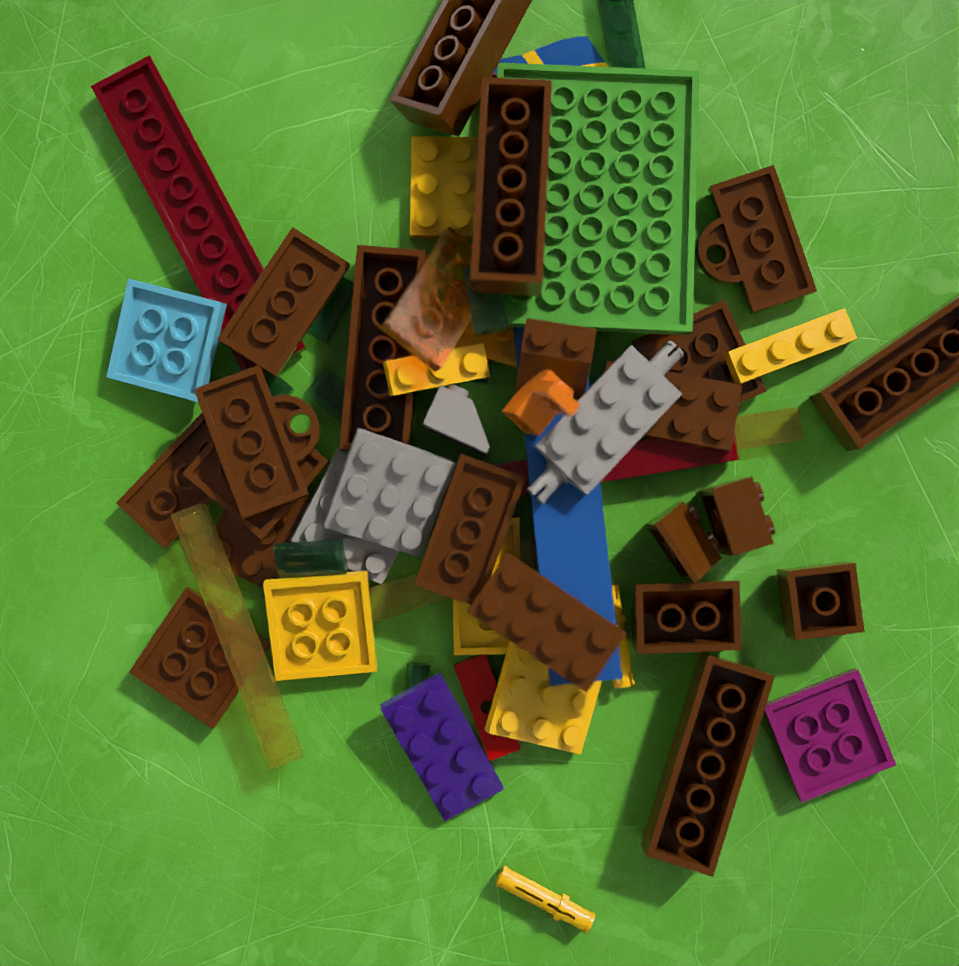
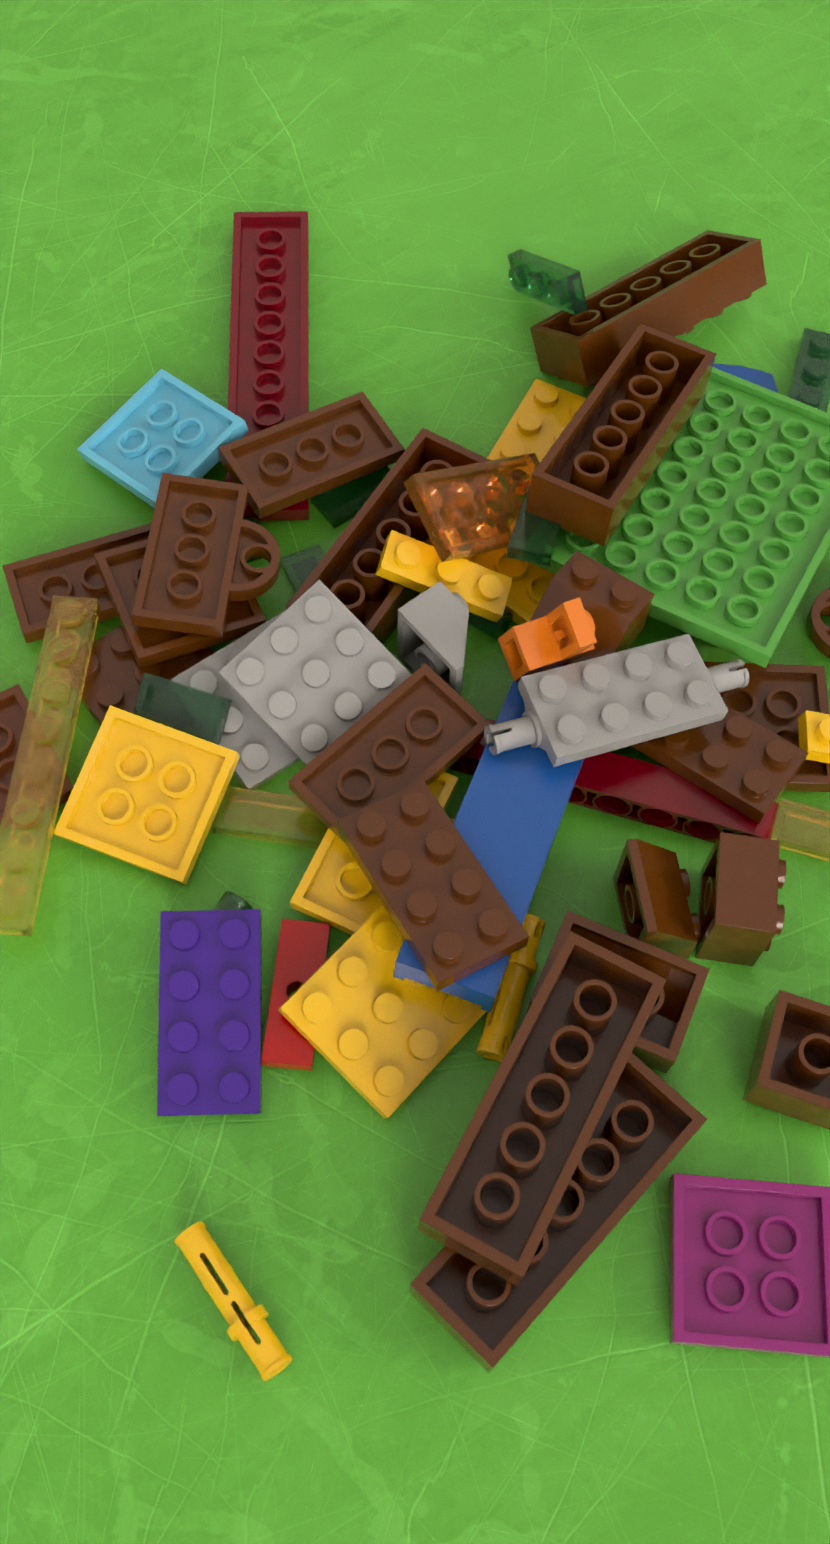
camera: 20 degrees right, 25 degrees down
(381, 47) = (547, 281): none -> clear green plate
(681, 729) = (541, 1108): none -> reddish brown brick

